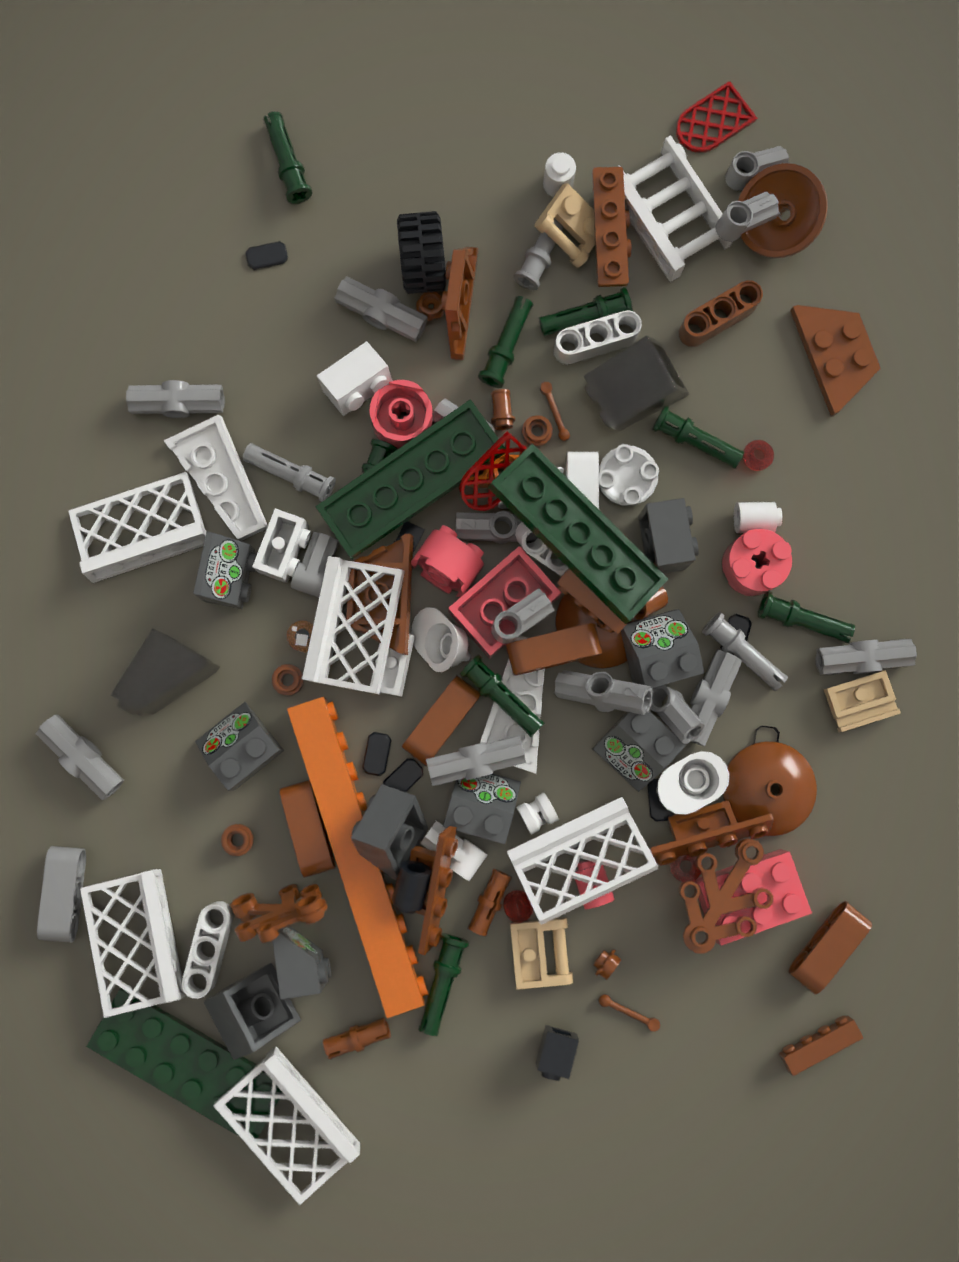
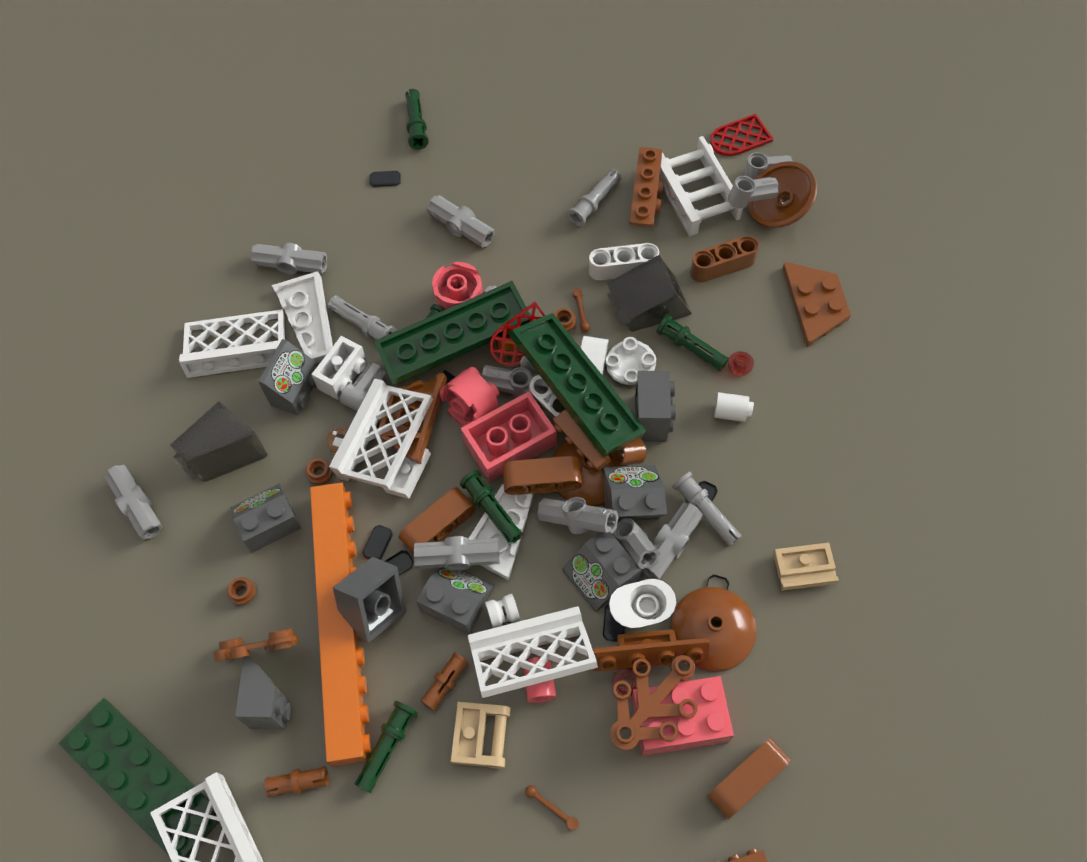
camera: 20 degrees right, 20 degrees down
(61, 894) = (81, 608): light grey beam -> none
(161, 942) = (151, 663): white fence -> none
(197, 961) = (187, 691): white beam -> none
(251, 1012) = (209, 738): dark grey slope -> none
(307, 829) = (301, 591): dark orange beam -> none
(354, 378) = (424, 260): white brick -> none
(411, 886) = (376, 647): black brick -> none
(421, 252) = (498, 183): black tyre -> none
(430, 298) = (500, 220): dark orange plate -> none
(439, 640) = (450, 457): white piece -> none
(441, 876) = (392, 653): dark orange bracket -> none
(459, 297) = (520, 218): dark orange wing -> none
(467, 857) = (427, 635): white piece -> none
(501, 354) = (546, 263): dark green pin -> none
(502, 412) = (539, 296): dark orange pin -> none
(521, 899) = (470, 682): clear red plate -> none
(523, 616) = (519, 439): light grey piece -> none
(556, 1053) = (474, 827): black brick -> none
(558, 171) = (614, 152): white brick -> none
(575, 217) = (620, 178): tan plate -> none
(593, 310) = (630, 239): dark green pin -> none
(606, 963) = (538, 755): dark orange plate -> none
(773, 555) = (727, 439): coral brick -> none
(792, 614) = (752, 486): dark green pin -> none
(865, 656) = (813, 529): light grey piece -> none

